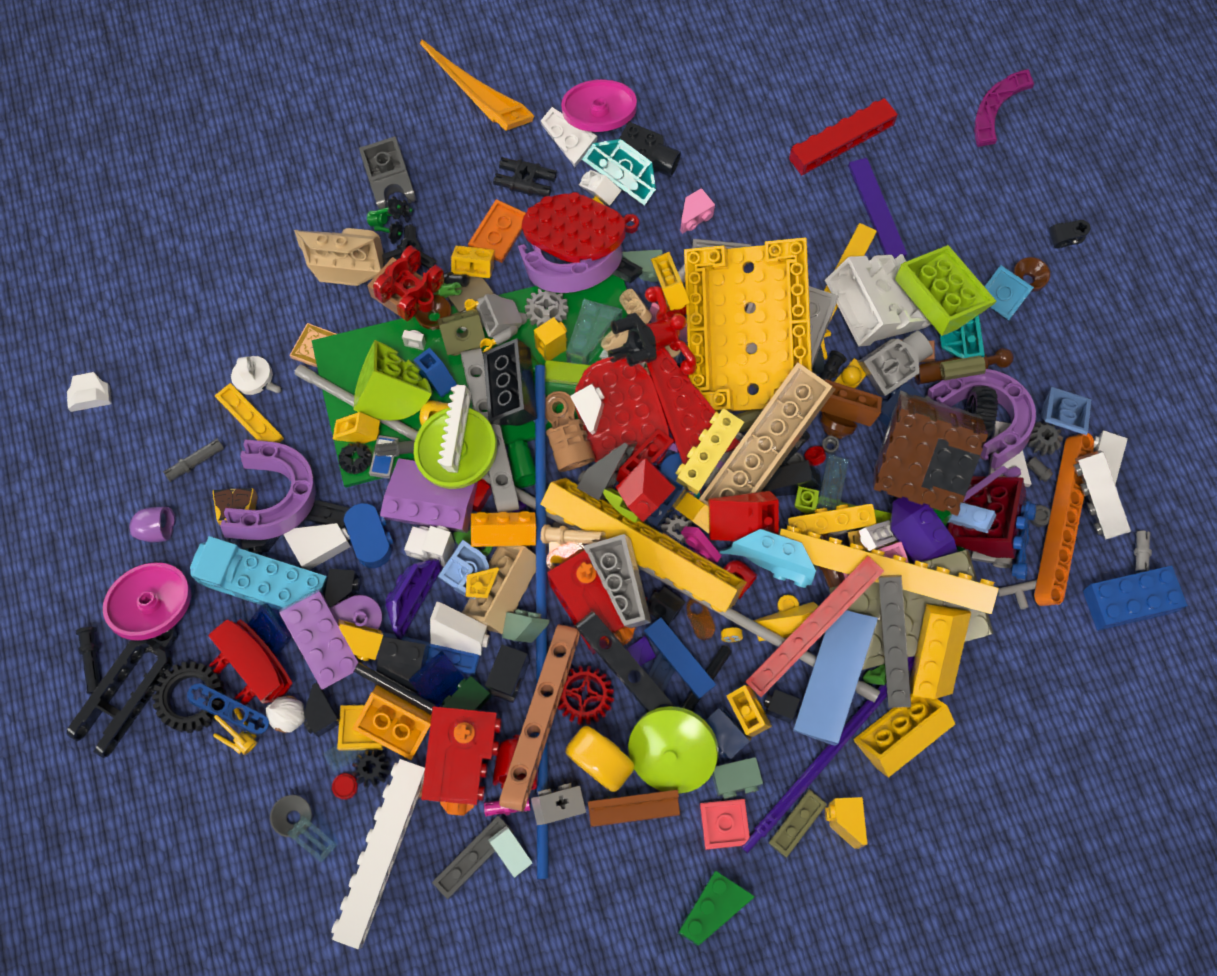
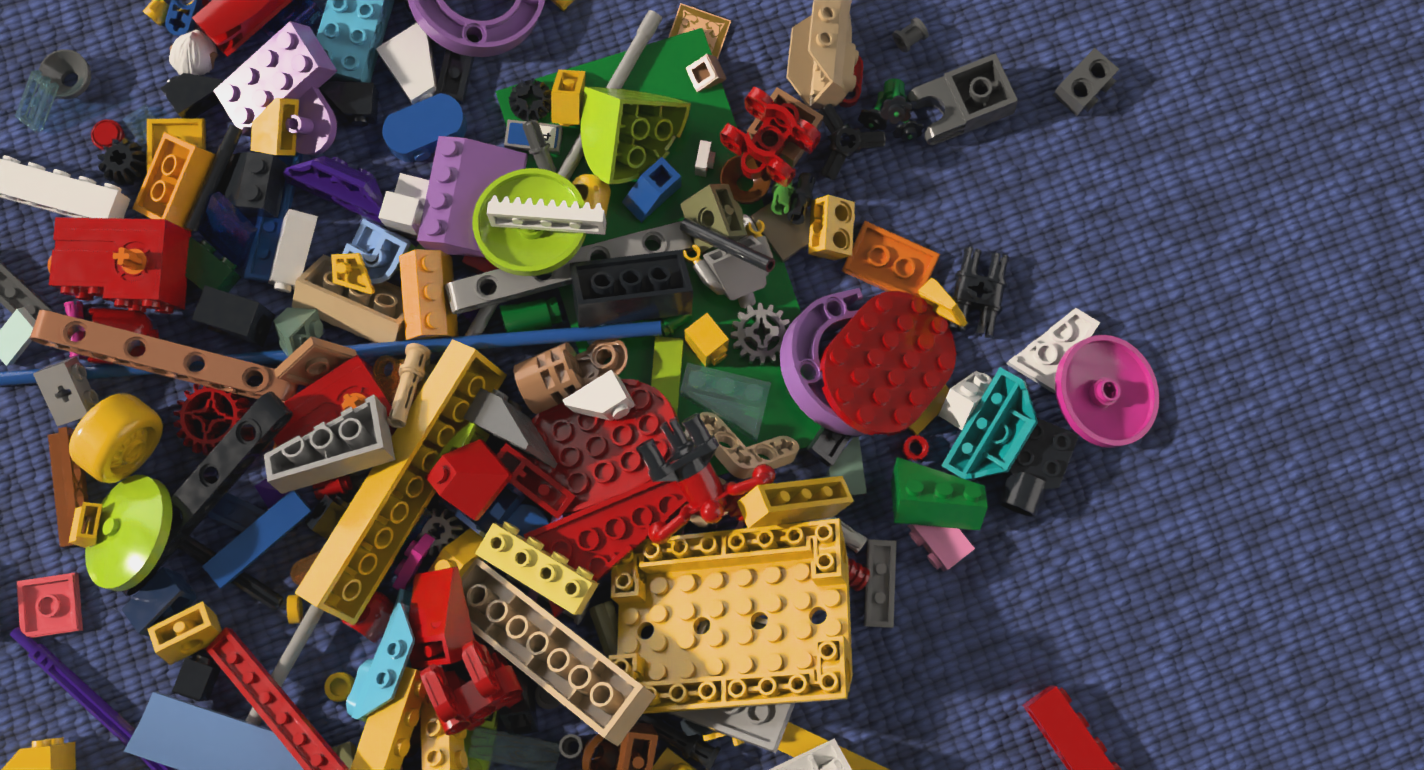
camera: 85 degrees right, 10 degrees up
(335, 202) = (910, 34): none -> dark grey bush
(348, 338) = (706, 72): none -> medium nougat slope
(383, 102) = (1083, 80): none -> dark grey brick
(485, 315) = (727, 245): none -> black piece
(495, 105) = (1096, 241): light orange plate -> none
(533, 194) = (942, 302): none -> yellow slope
(551, 604) = (313, 361): none -> medium nougat tile
(666, 208) = (935, 498): none -> green wedge
(666, 780) = (89, 538): none -> yellow piece
(737, 777) = (103, 620): sand green brick -> none
(787, 621) = (311, 690): yellow slope -> none
(796, 473) = (466, 705): none -> red piece
(797, 823) = (48, 701): olive tile -> none
(815, 455) = (558, 724): red tile -> none

